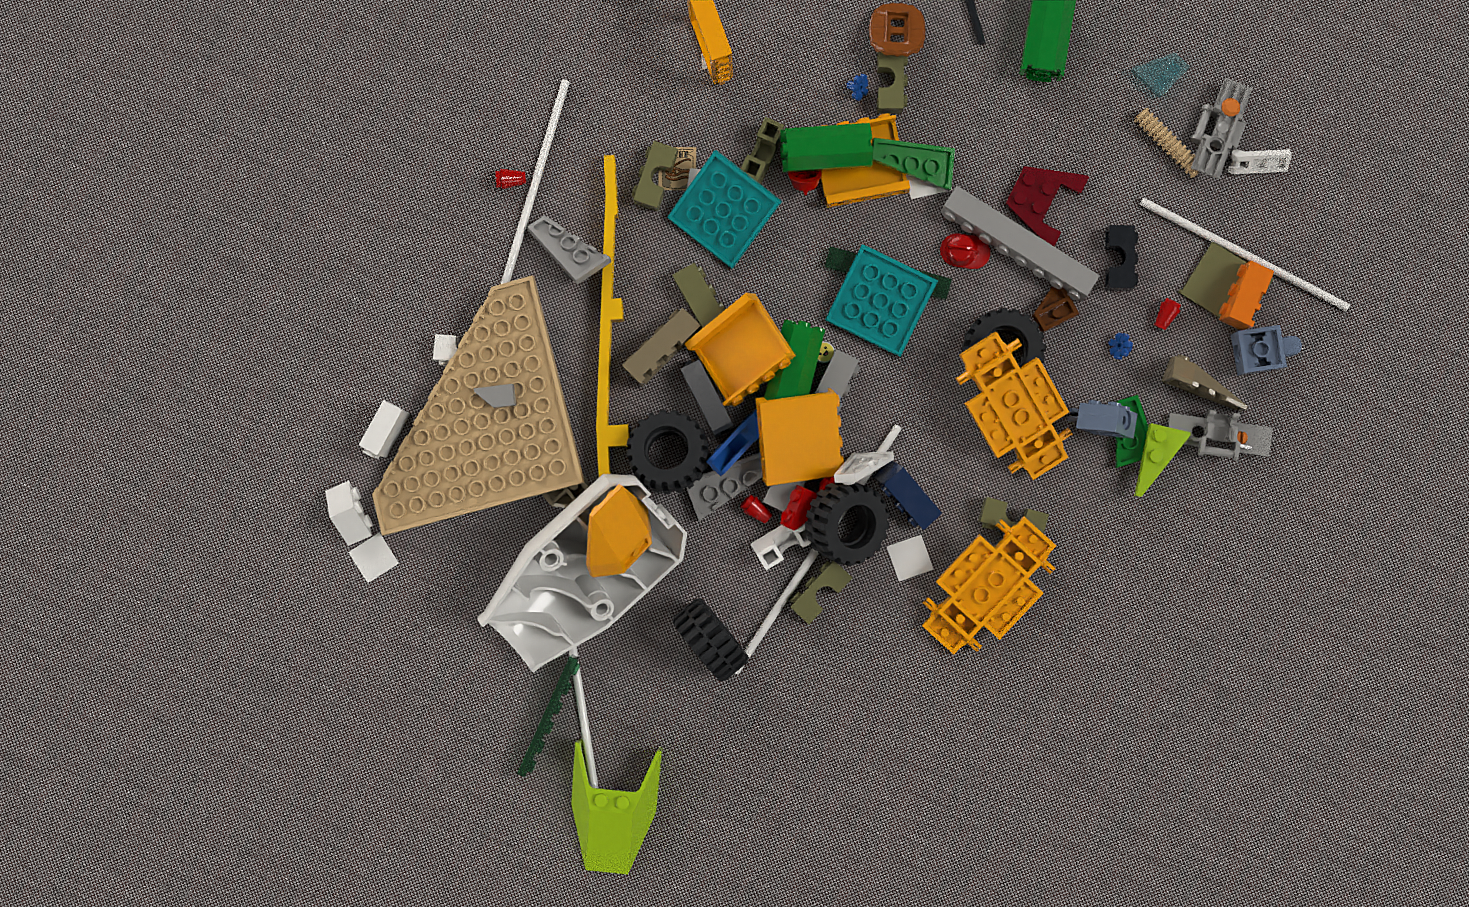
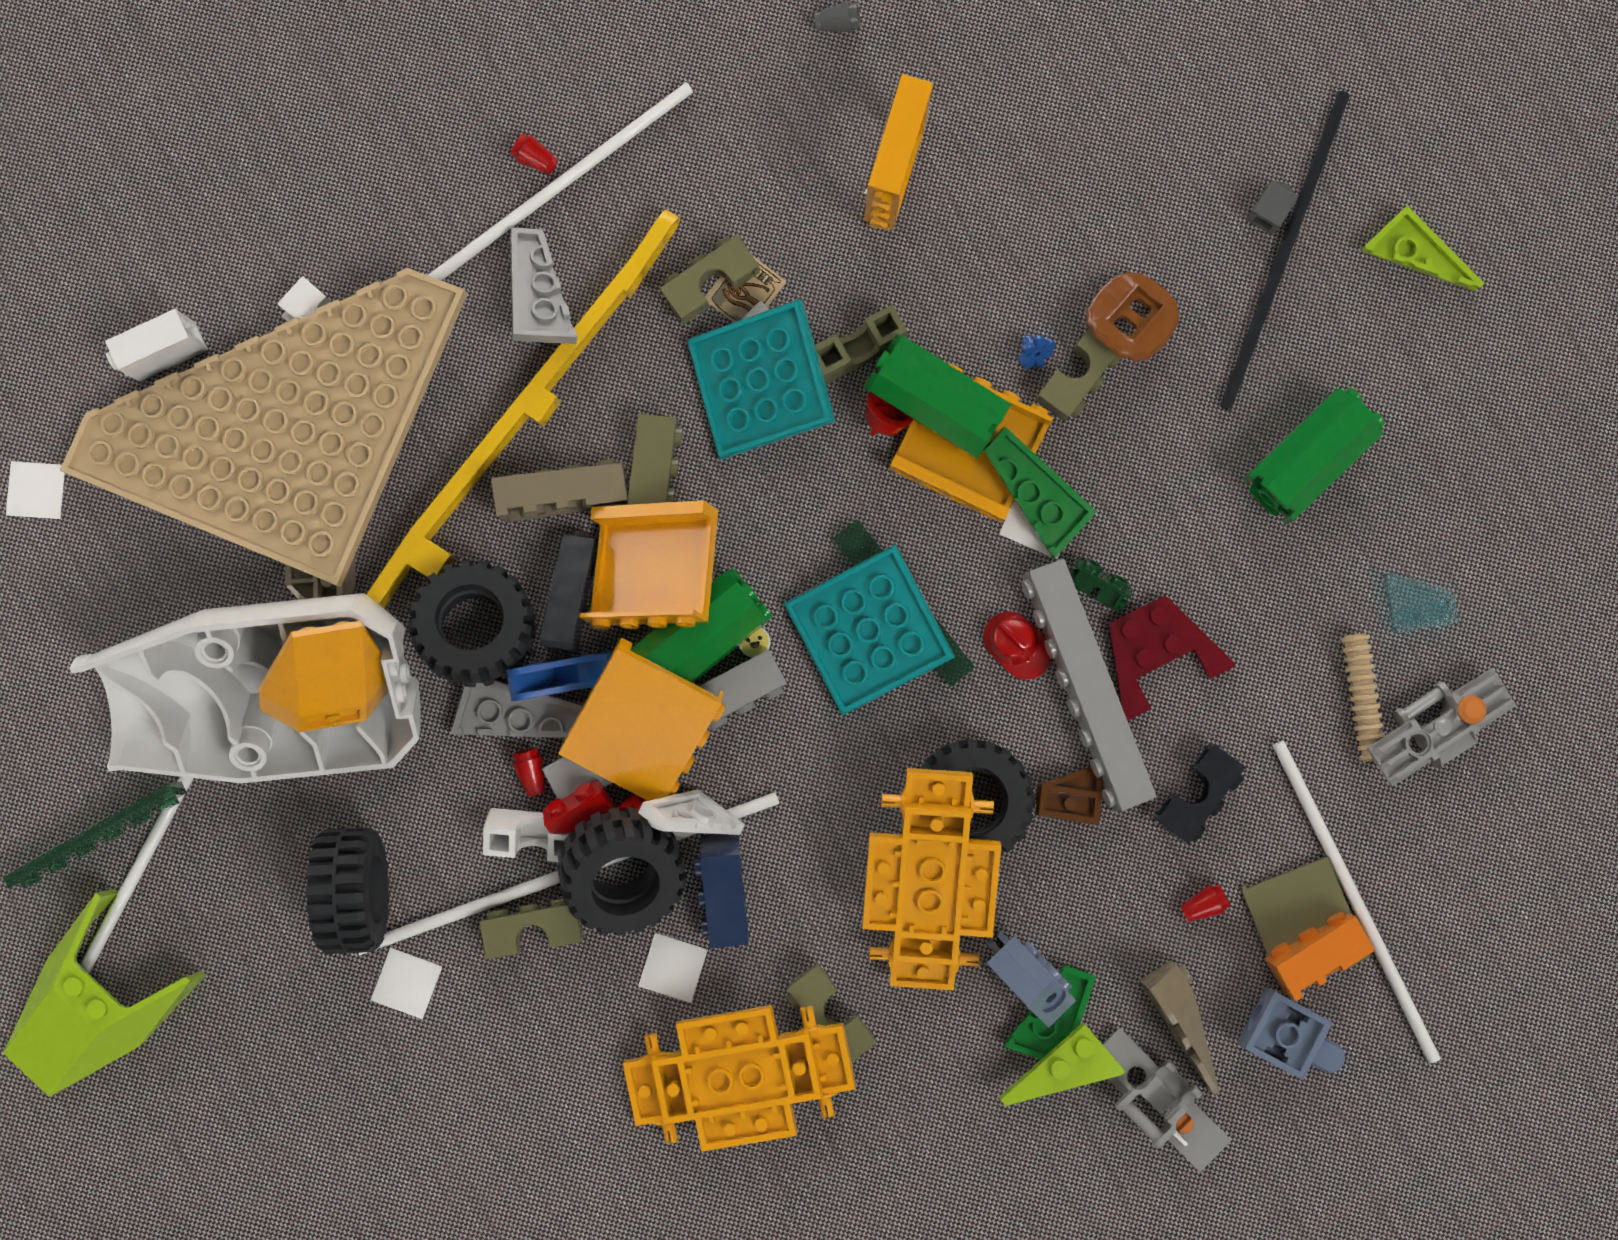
camera: 30 degrees right, 0 degrees up
(348, 513) = (36, 412): white brick -> none
(498, 395) = (315, 405): light grey tile -> none
(773, 672) = (406, 983): none -> white sticker
(993, 184) = (1111, 587): none -> dark green hinge
(1121, 345) = (1119, 901): blue plant -> none
(1259, 161) = (1458, 802): white plate -> none

